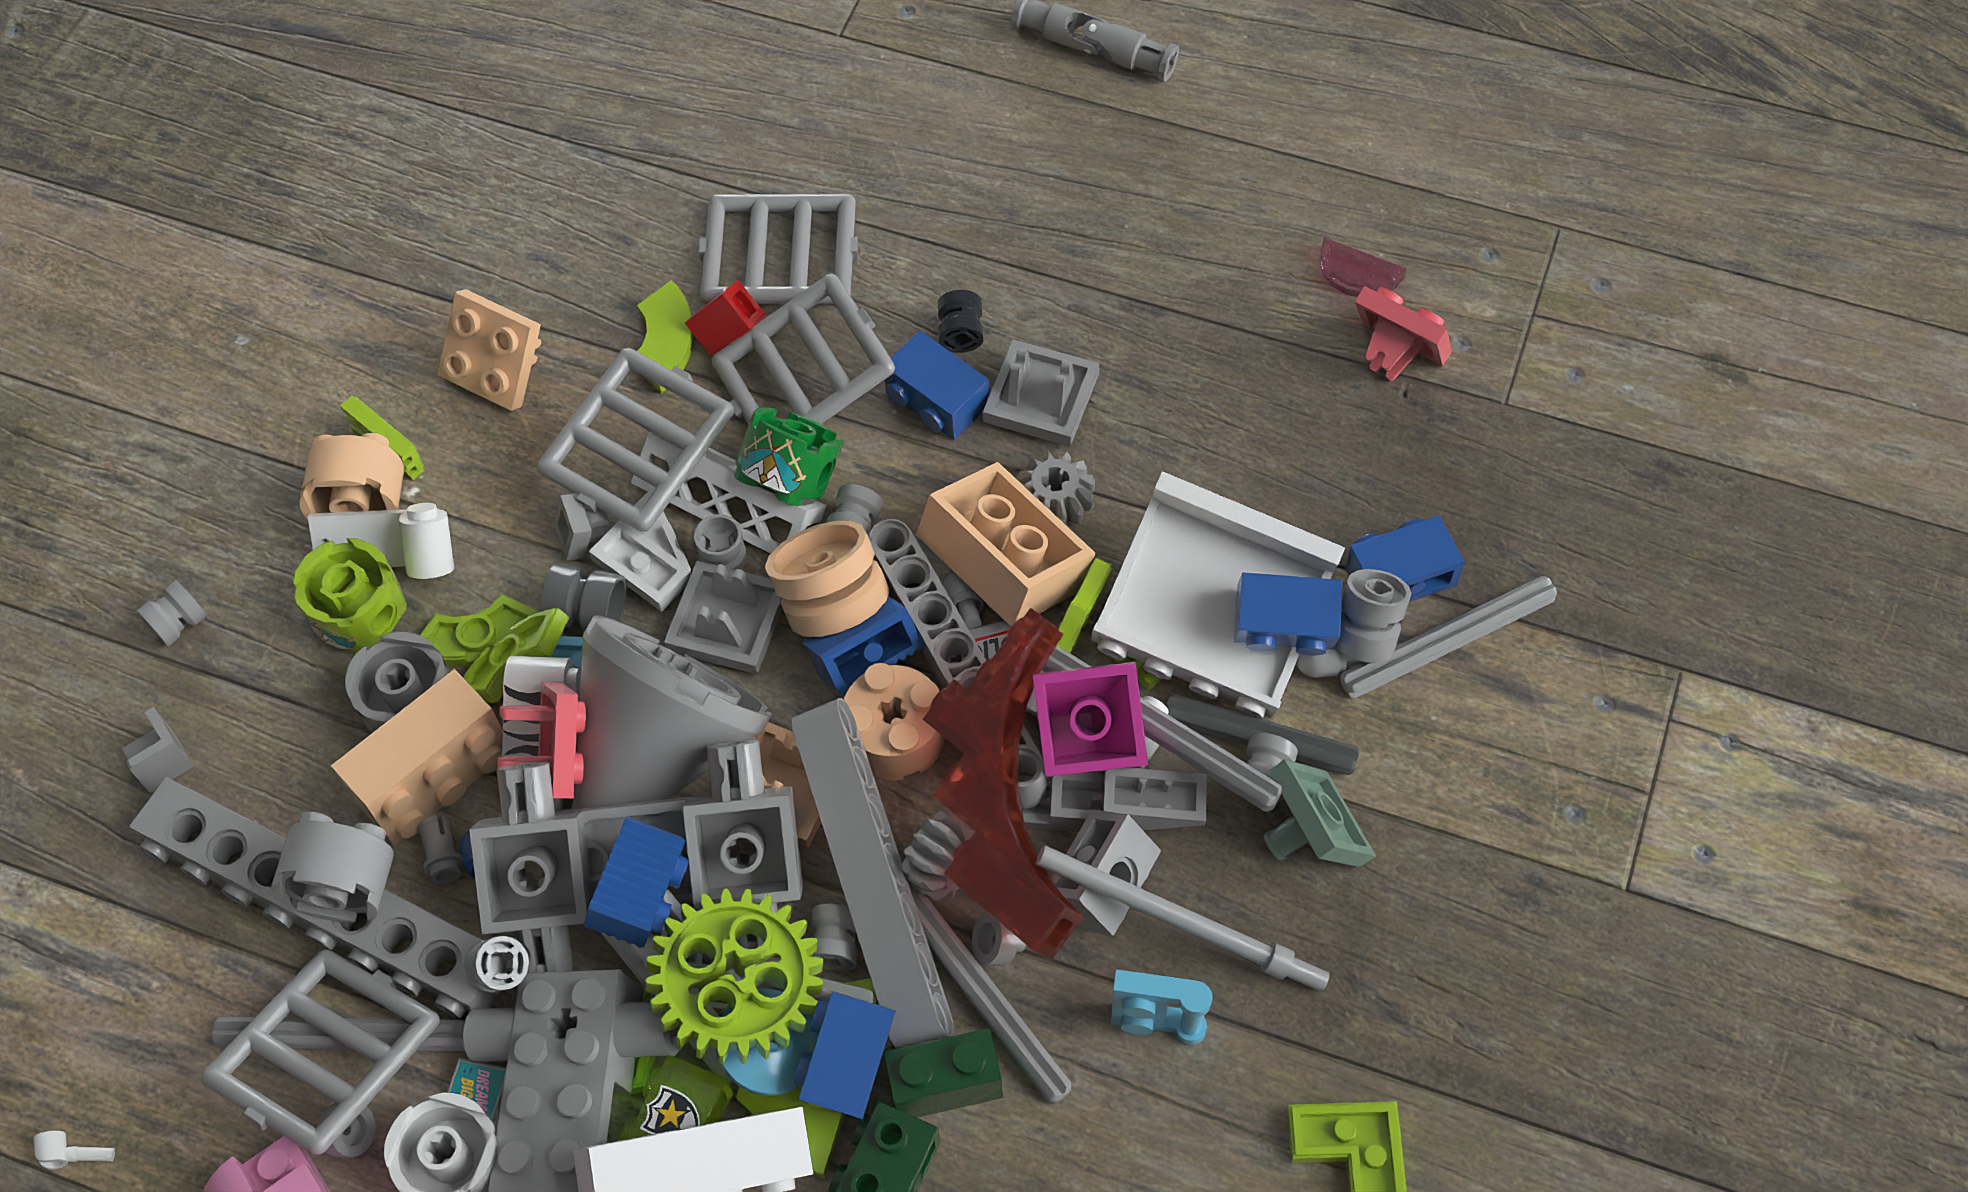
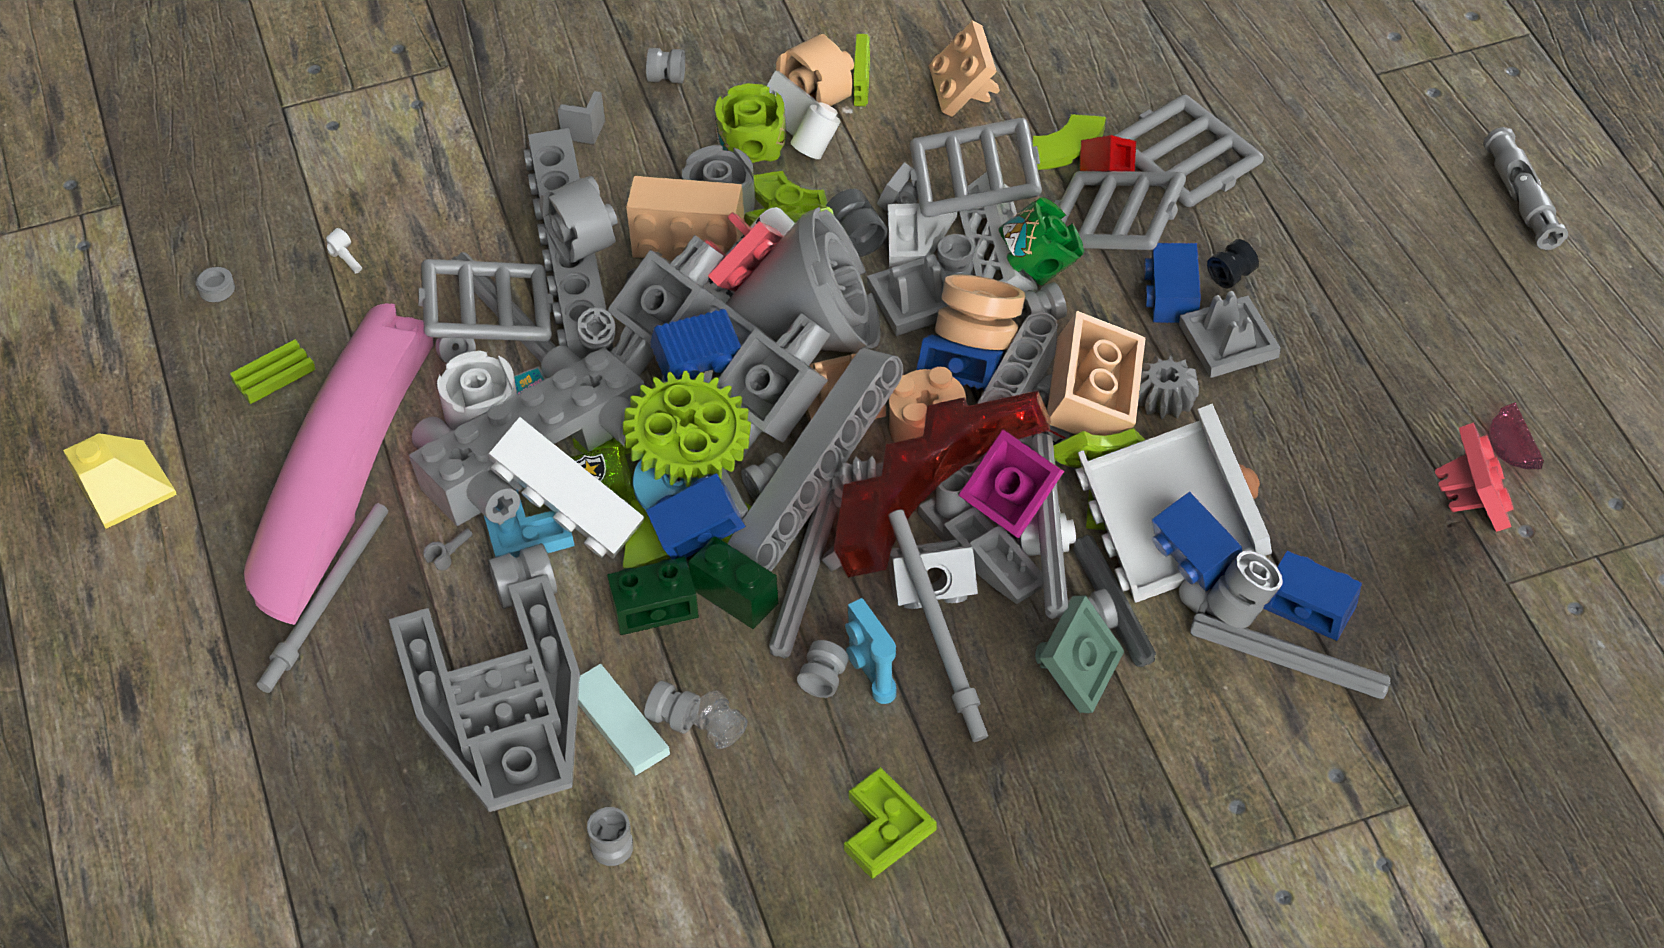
camera: 50 degrees right, 10 degrees down
(1125, 1069) = (821, 672): none -> light grey wheel

